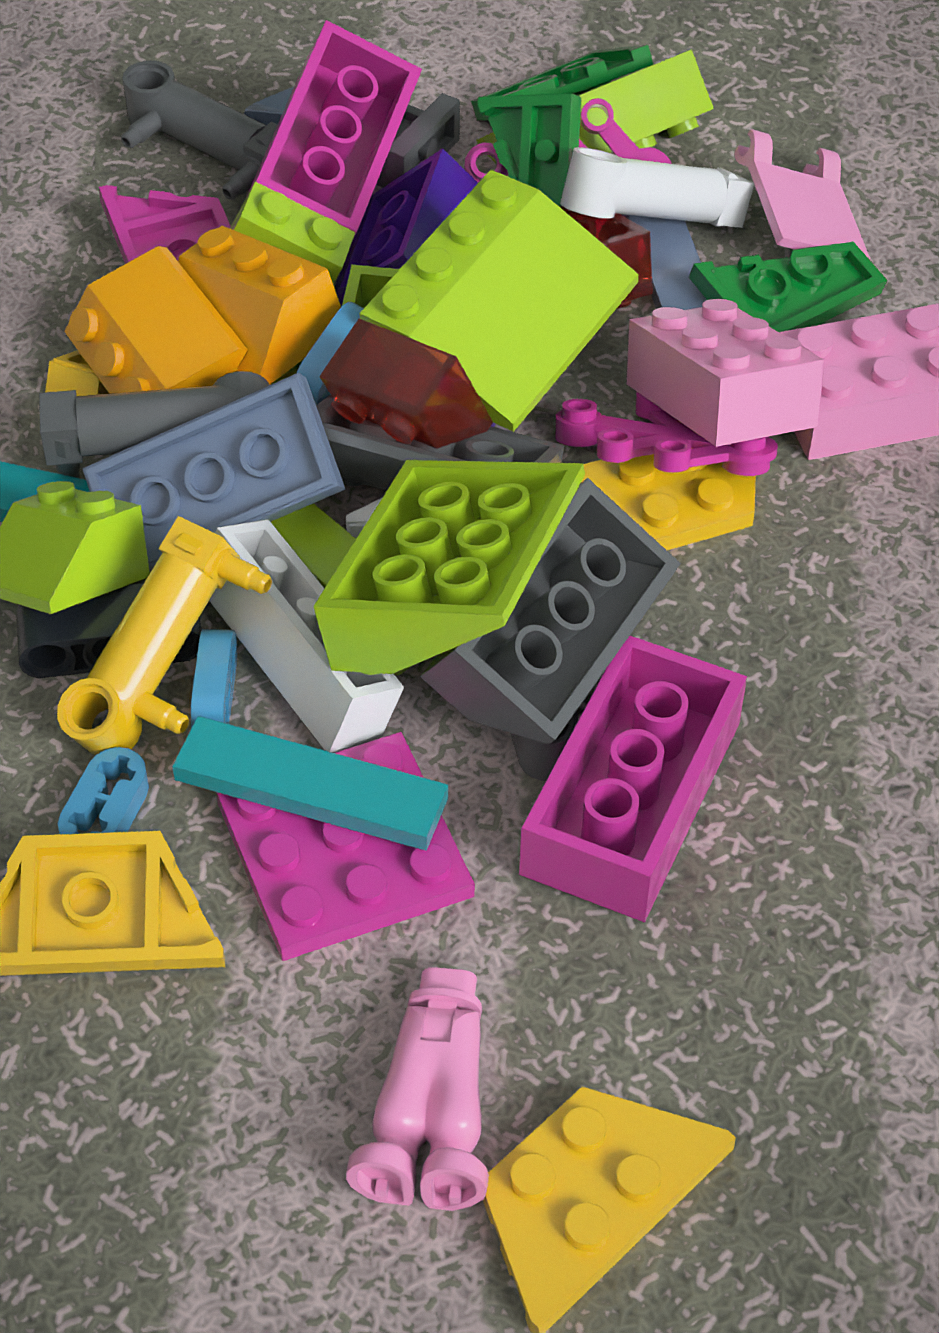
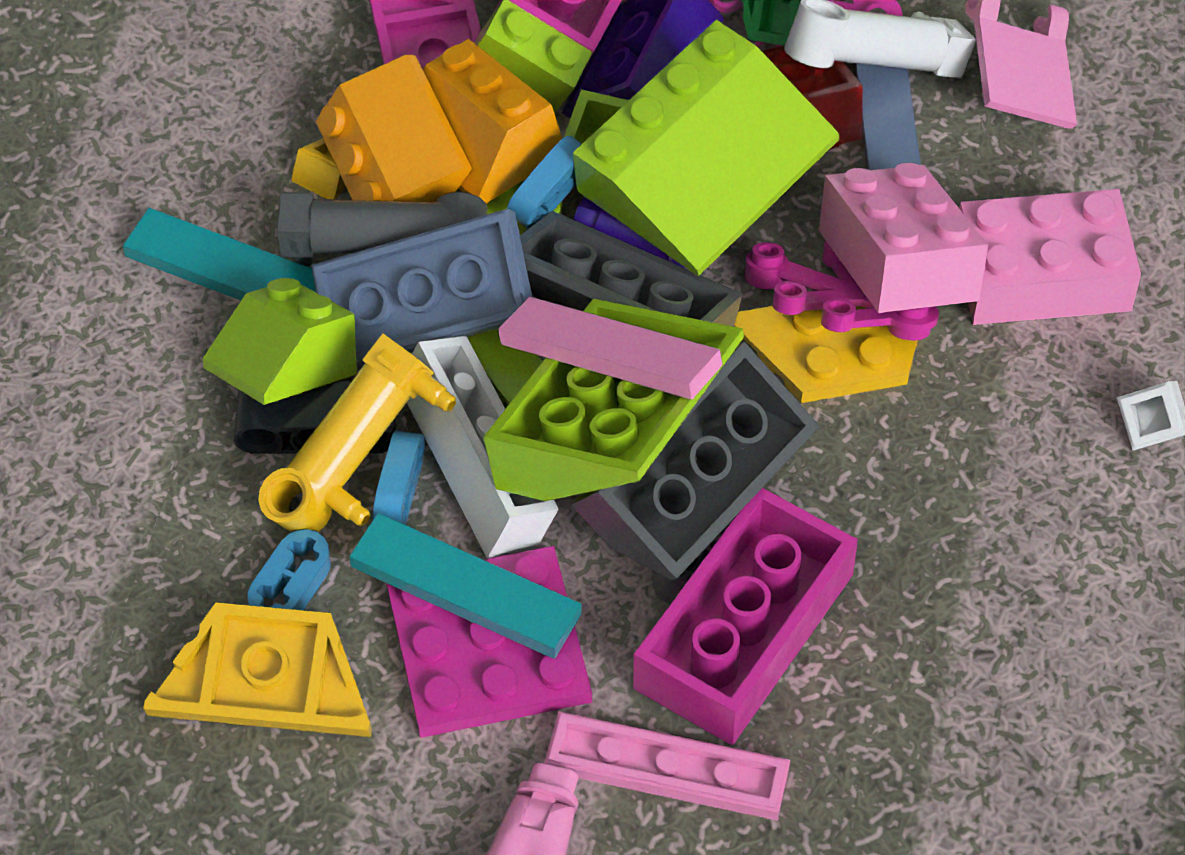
camera: 10 degrees right, 5 degrees up
(403, 388) = (600, 232): clear red slope -> none
(441, 499) = (611, 347): none -> bright pink tile
(578, 953) = (669, 765): none -> bright pink tile
(794, 289) = (991, 155): green wing -> none

